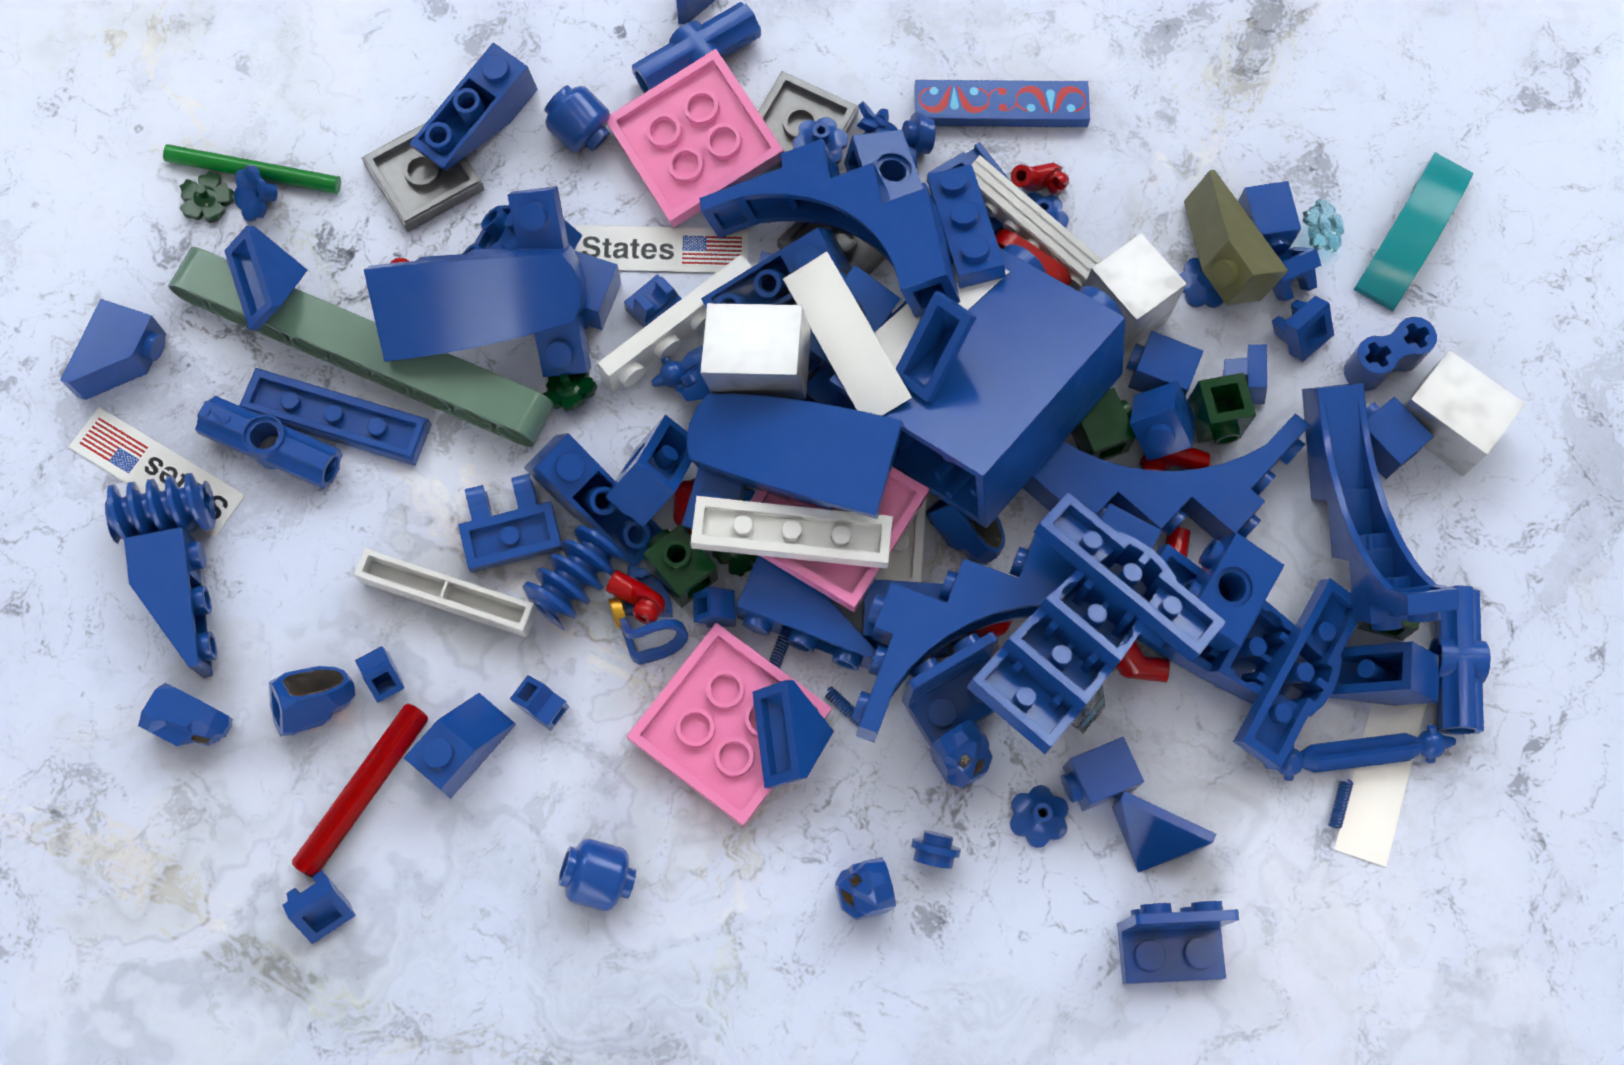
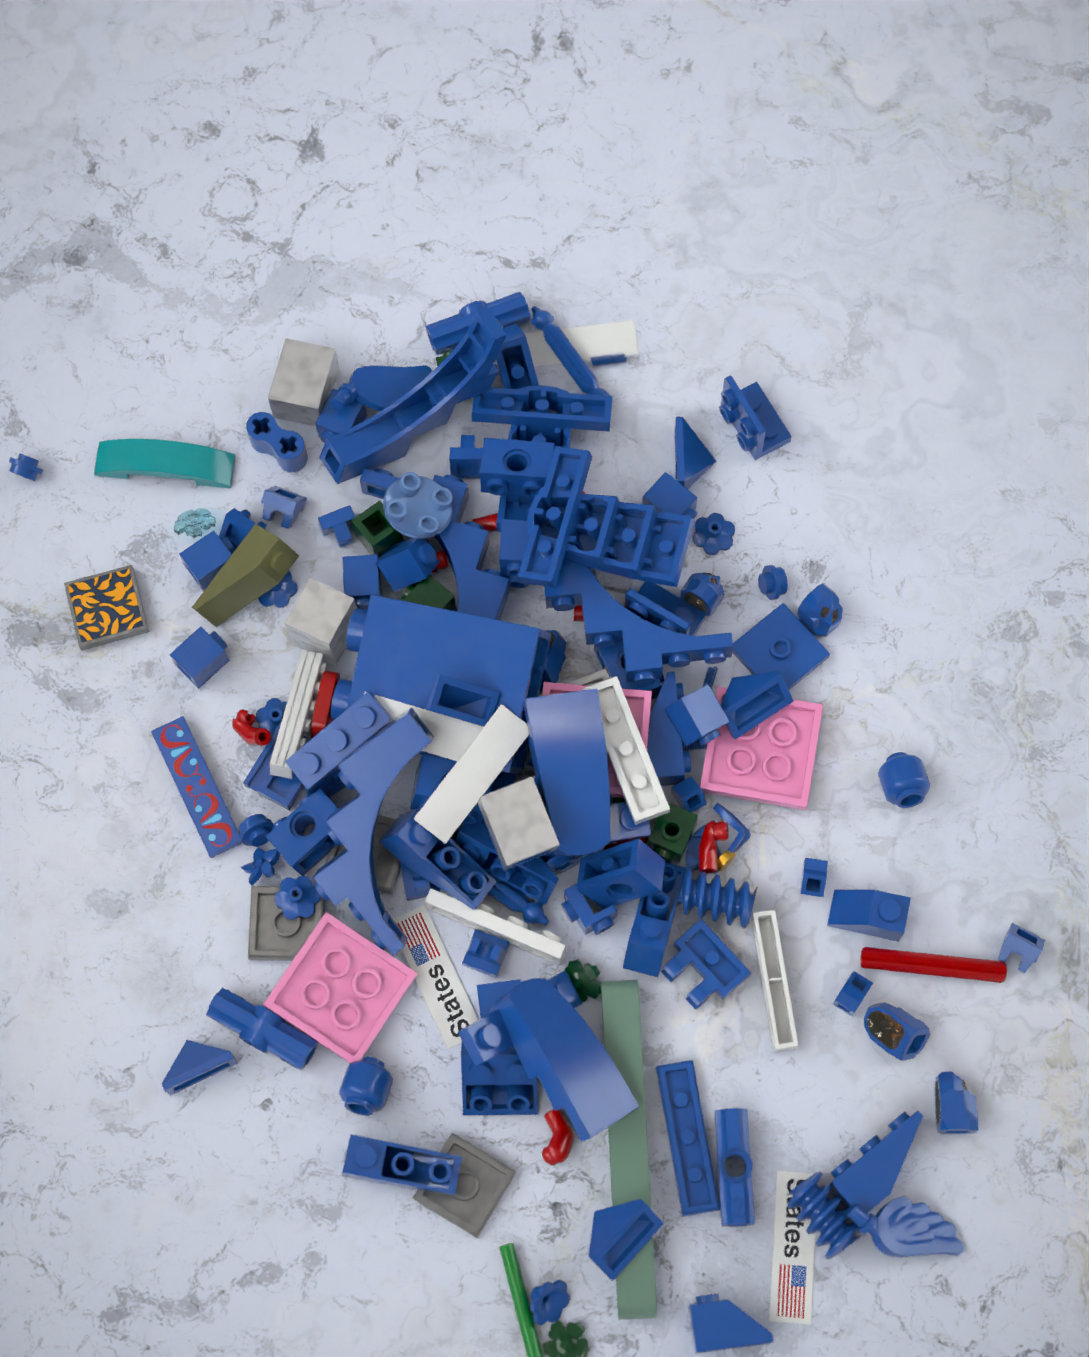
camera: 110 degrees left, 0 degrees up
(84, 588) = (907, 1229): none -> animal
(636, 423) = (578, 909): none -> blue bracket
(796, 650) = (698, 716): none -> brick
(843, 815) = (780, 645): none -> blue plate
(1152, 161) = (200, 656): none -> blue brick
(1227, 454) = (418, 506): none -> medium blue dish
(1259, 100) = (106, 607): none -> tile
(1277, 544) = (466, 459): none -> blue tile
(1417, 490) = (379, 385): none -> blue animal
(1471, 81) = (25, 467): none -> blue plate

